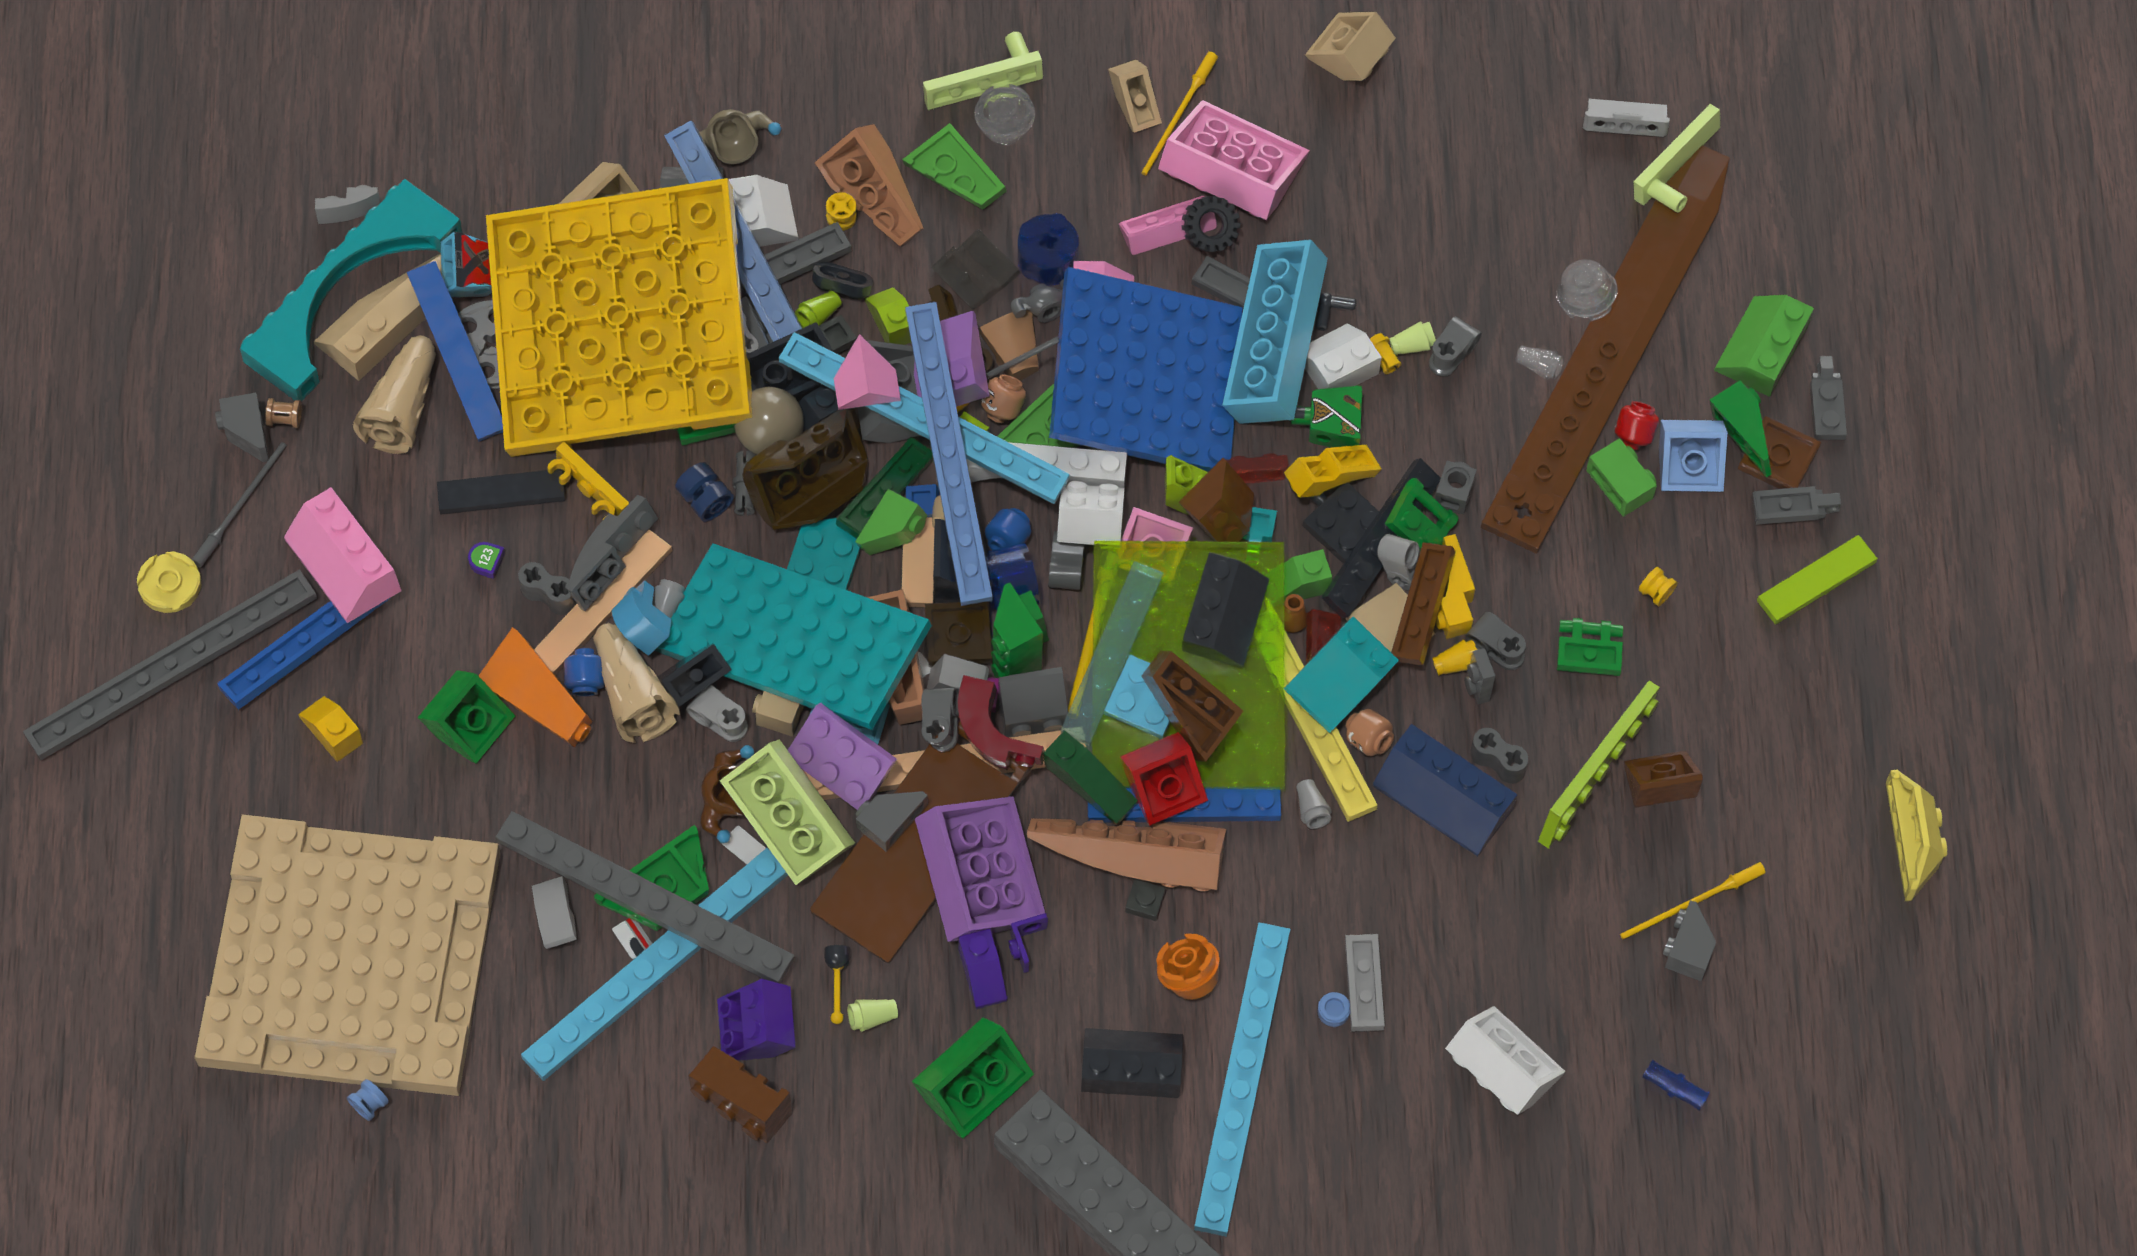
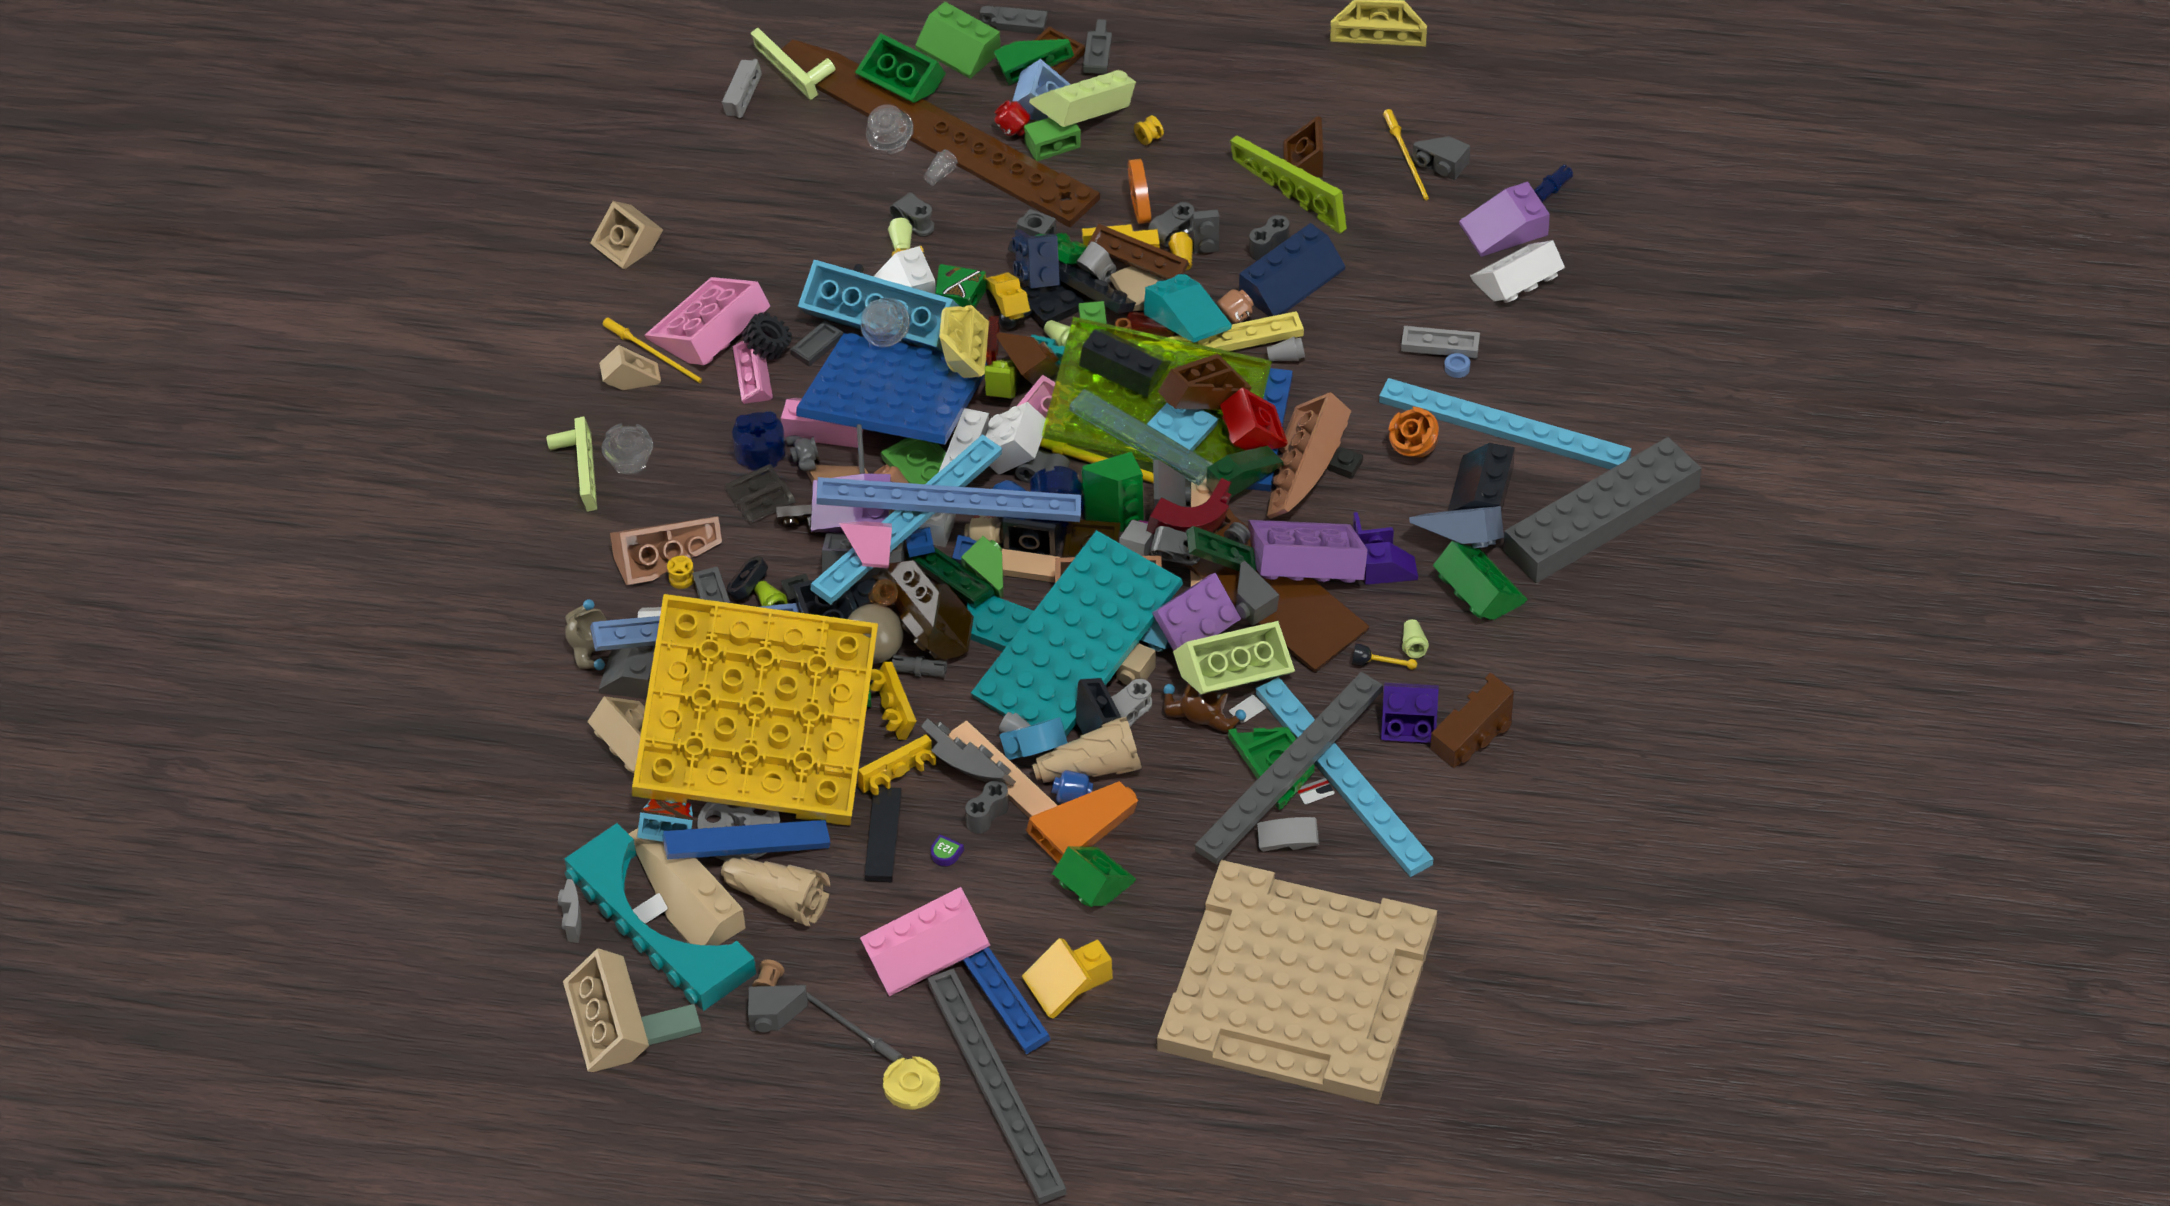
camera: 75 degrees left, 15 degrees down
(216, 332) = (671, 1024): none -> sand green tile
(220, 267) = (605, 1011): none -> tan slope
(311, 699) = (1056, 978): none -> yellow tile
(365, 281) = (650, 908): none -> white sticker
(367, 1099) = (1435, 978): medium blue wheel -> none
(683, 461) = (893, 700): none -> yellow plate
(702, 488) = (916, 690): dark blue wheel -> none
(804, 412) = (888, 592): none -> clear orange cone
(890, 315) = (790, 549): lime slope -> none
(914, 447) = (920, 542): none -> blue plate
(933, 762) = (1219, 549): none -> dark green plate
(957, 167) = (662, 492): bright green wing -> none
(978, 785) = (1238, 533): none -> dark grey bush
(1046, 1038) = (1466, 526): none -> sand blue slope
(1219, 427) = (964, 340): none -> light yellow wedge
(1236, 337) = (884, 322): none -> clear cone
(1293, 540) = (1057, 331): none -> yellowish green cone
(1379, 487) = (1036, 259): none -> dark blue bracket
(1537, 589) = (1139, 191): none -> orange piece
(1590, 655) = (1195, 178): green plate -> none
(1592, 1036) = (1507, 220): none -> medium lavender slope
(1682, 498) = (1086, 98): none -> yellowish green slope
(1690, 284) = (900, 69): none -> green slope
(1817, 579) = (1161, 48): lime tile -> none

